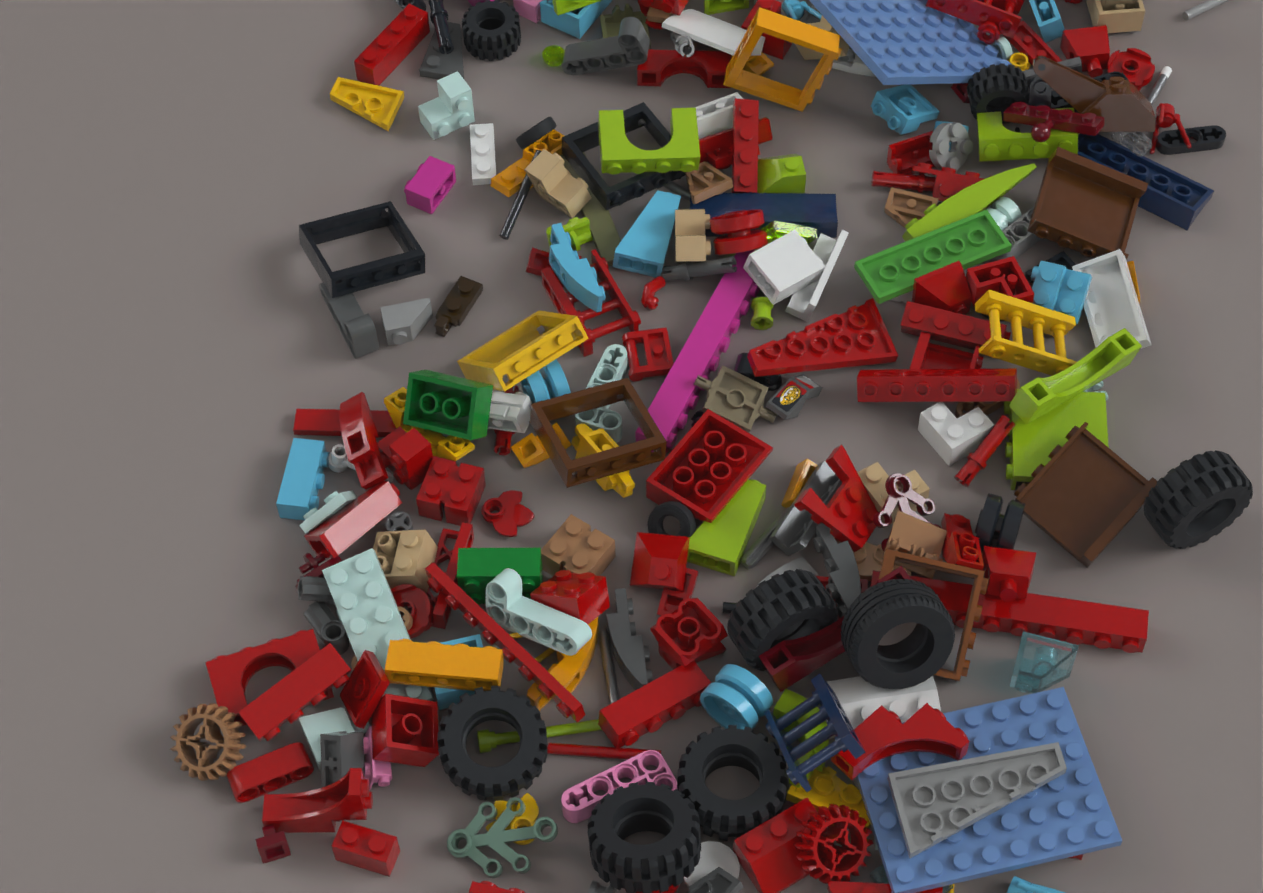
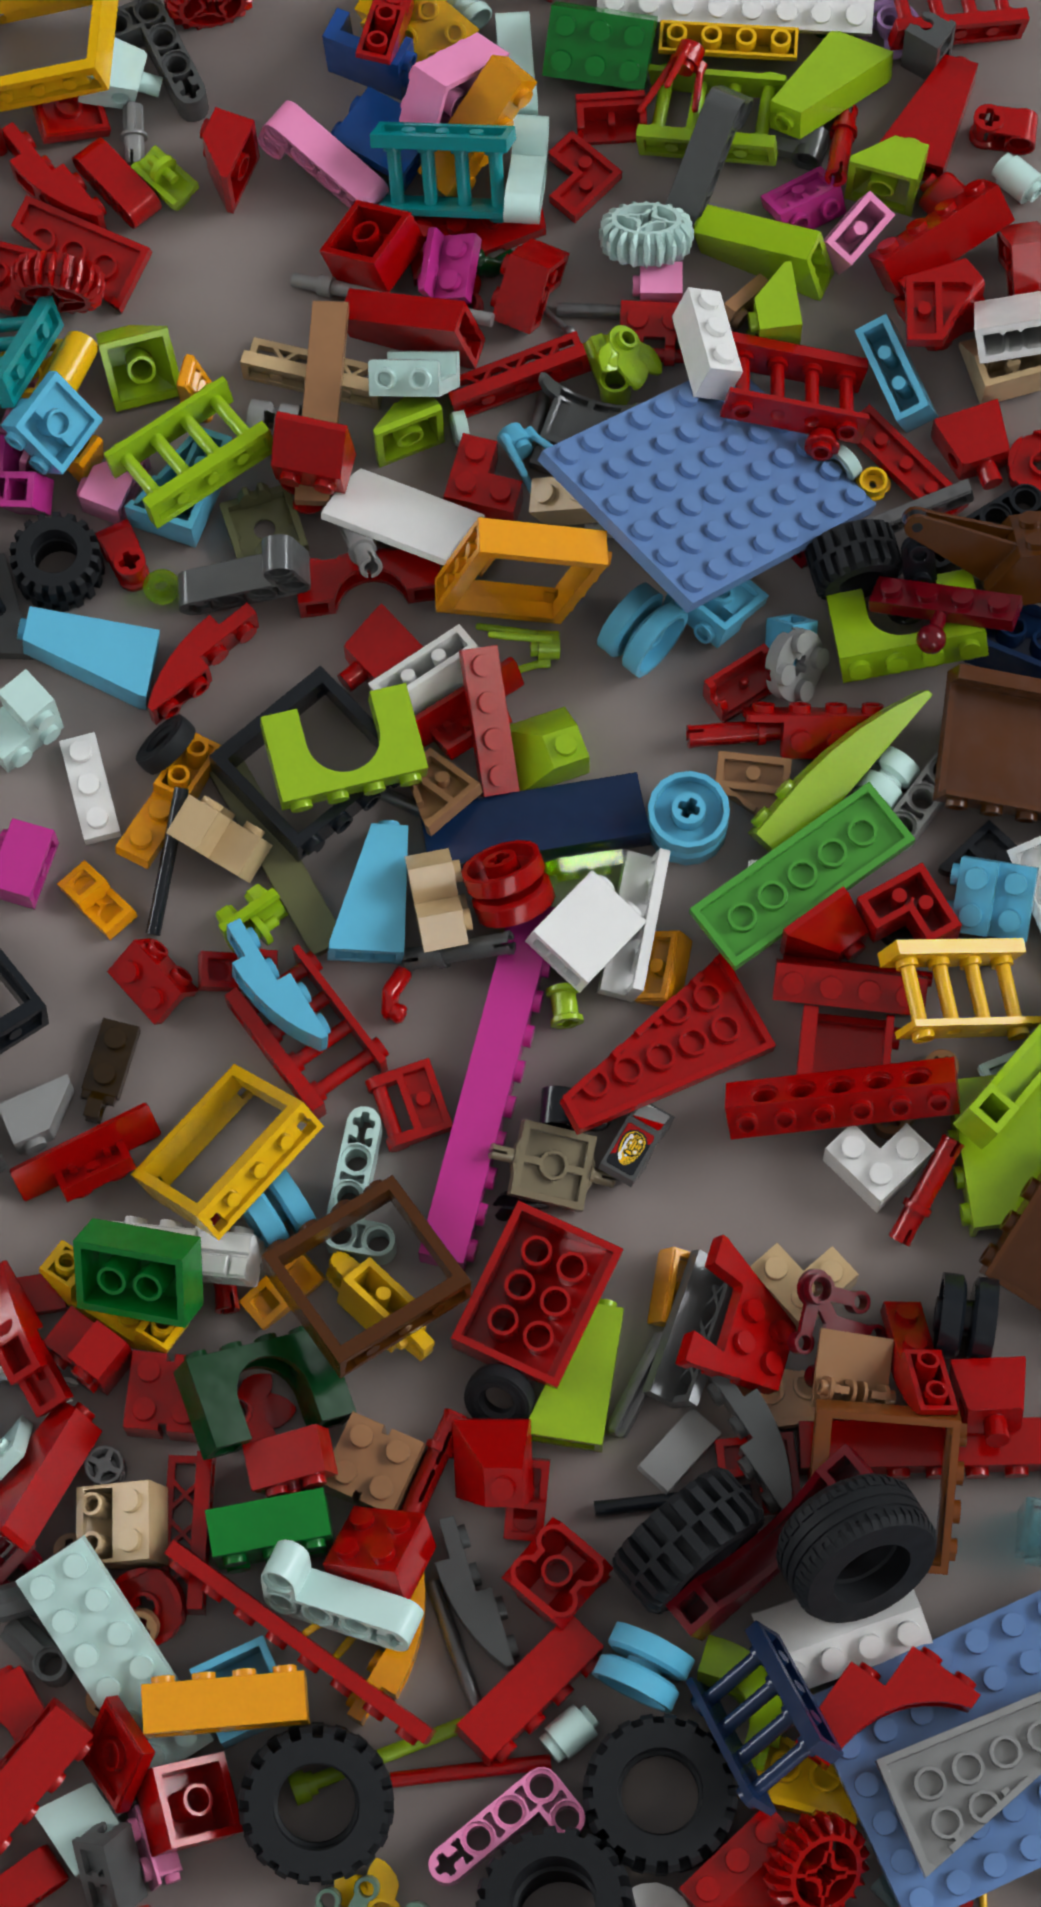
camera: 10 degrees left, 15 degrees up
(431, 349) = (88, 1158): none -> red bracket
(471, 212) = (97, 900): none -> light orange slope
(497, 259) = (152, 978): none -> red bracket
(503, 79) = (95, 651): none -> medium azure slope
(523, 528) = (290, 1461): none -> red brick
(534, 34) = (124, 552): none -> red piece
(541, 480) = (211, 1382): none -> dark green arch
(573, 87) = (188, 668): none -> red slope
(618, 563) = (432, 1466): none -> red pin
(676, 737) = (569, 1732): none -> light aqua brick
(682, 95) = (376, 648): none -> red torso
(788, 115) = (542, 643): none -> lime plant
(833, 300) = (666, 967): none -> light orange slope
(854, 113) = (642, 630): none -> medium azure wheel
(866, 218) = (688, 817): none -> medium azure wheel

